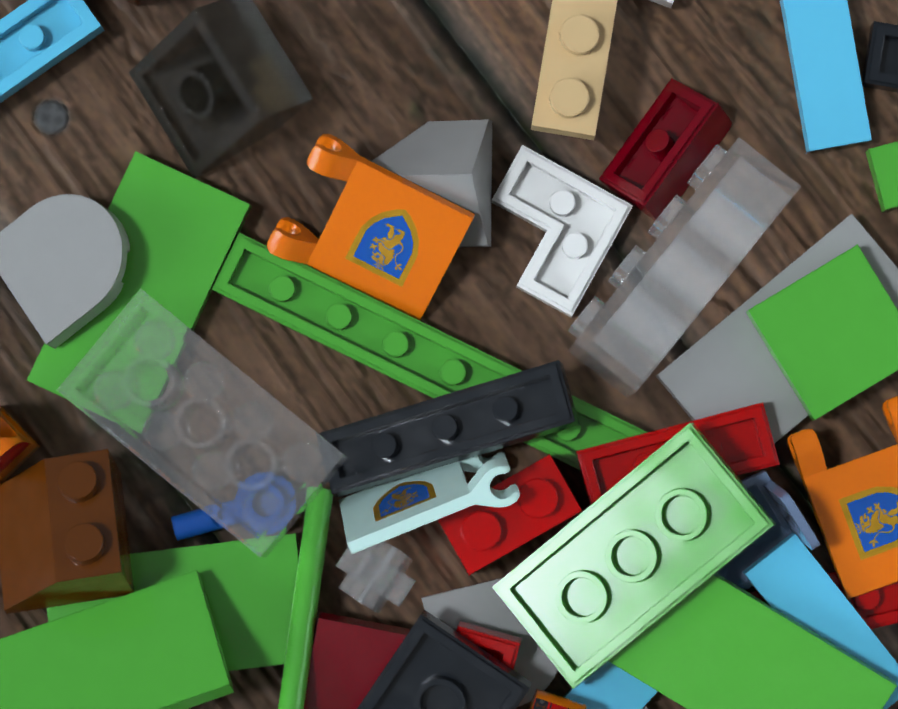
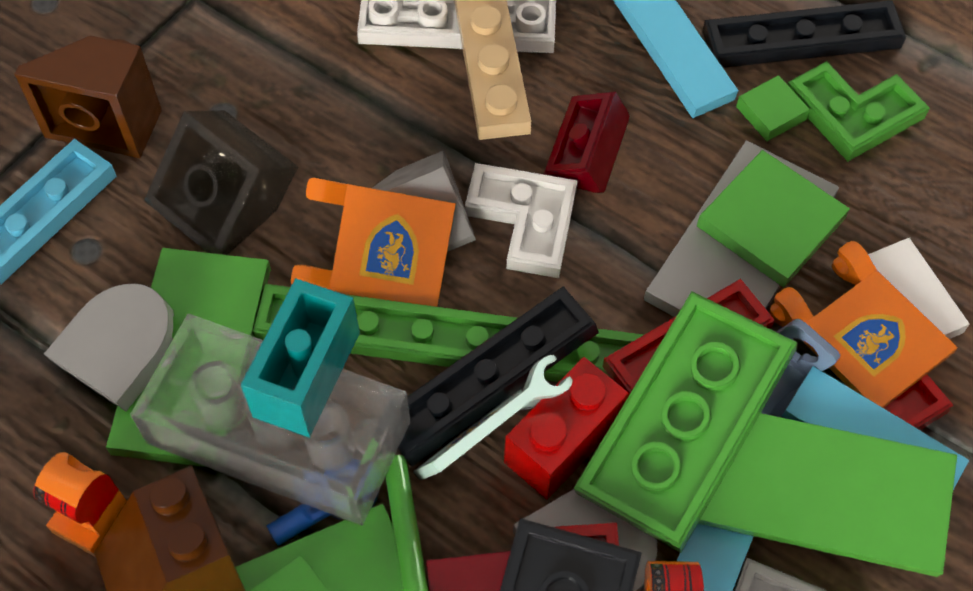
camera: 20 degrees left, 25 degrees down
(241, 405) = (301, 357): none -> teal brick
(376, 575) = (466, 511): clear gear -> none
(684, 268) = (631, 197): clear brick -> none

